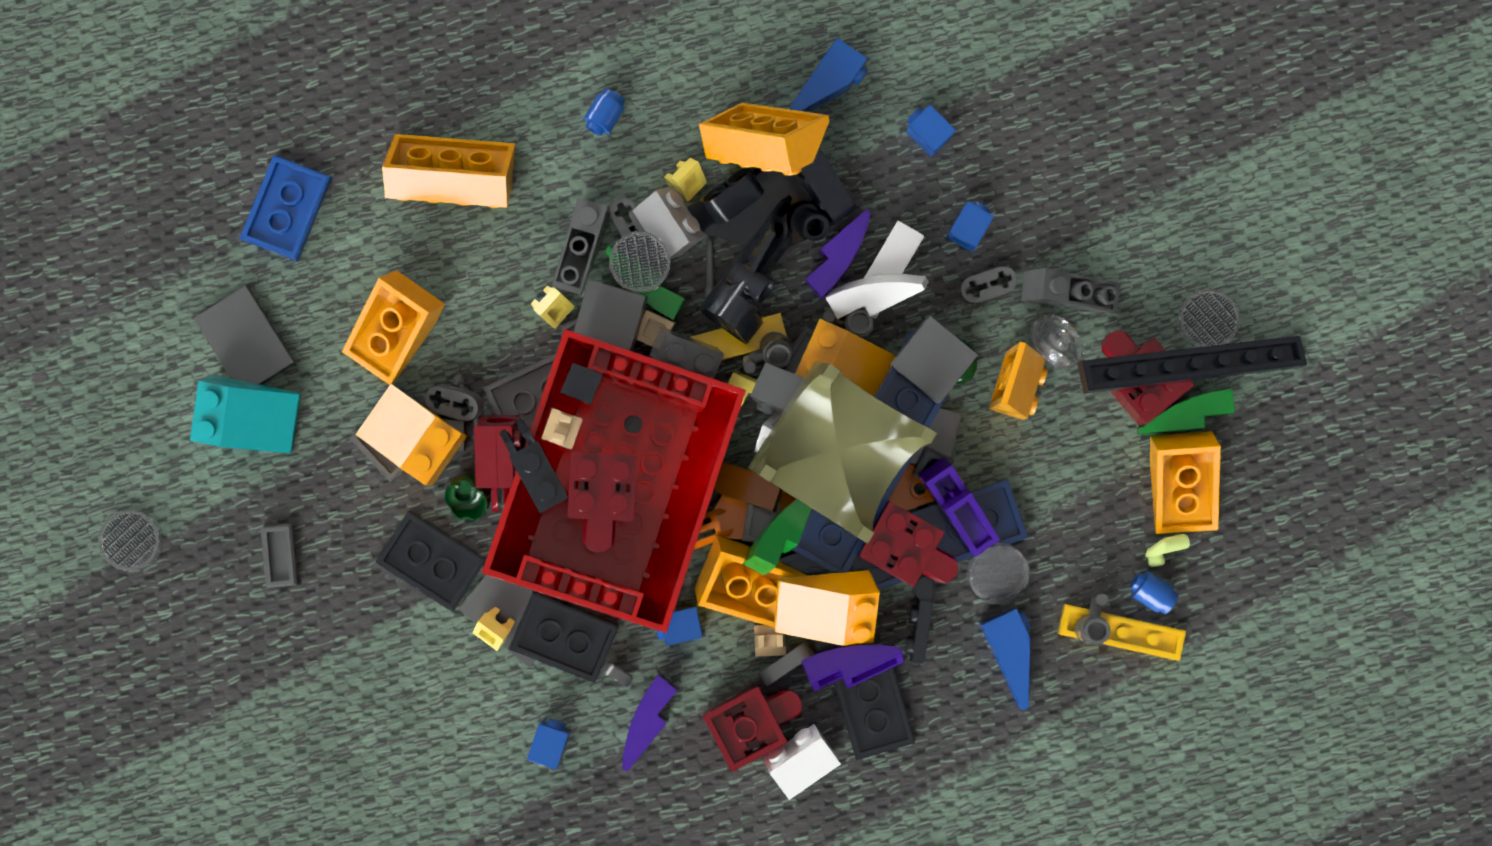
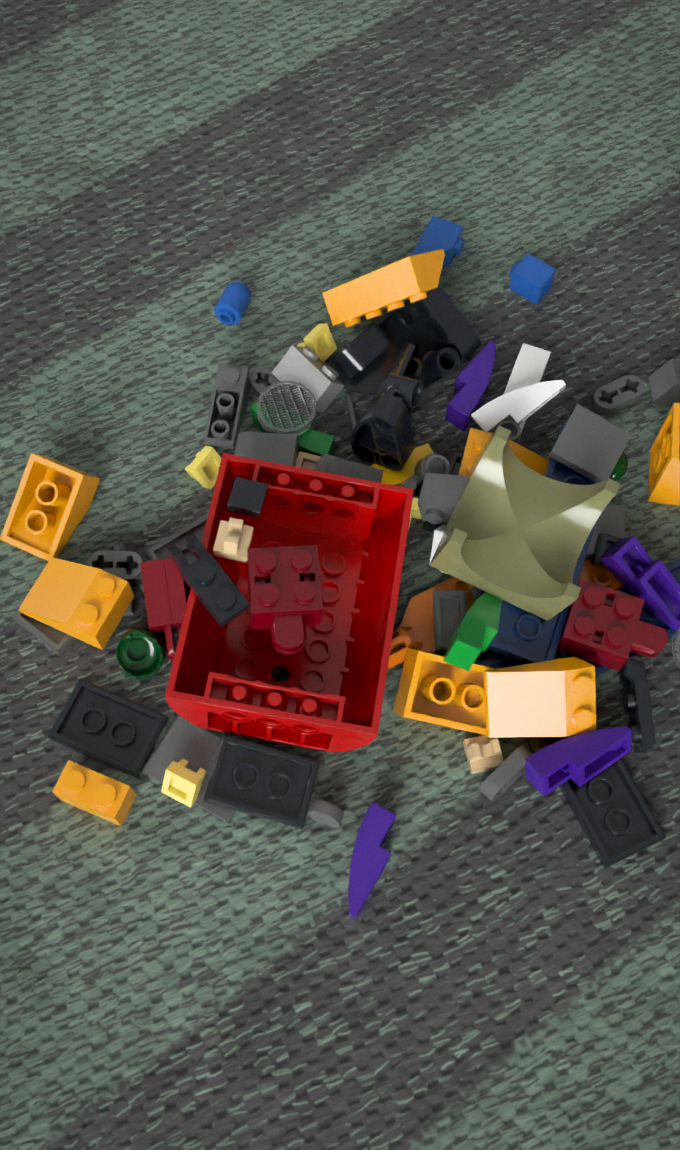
camera: 10 degrees left, 20 degrees down
(413, 624) = (94, 793): none -> light orange brick
(449, 170) = (92, 369): light orange slope -> none
(549, 743) = (262, 902): blue brick -> none
(683, 626) = (387, 750): blue brick -> none
(747, 487) = (432, 595): reddish brown tile -> none
(751, 721) = (484, 841): dark red brick -> none
(801, 761) = (548, 874): white brick -> none
(970, 225) = (588, 347): blue brick -> none

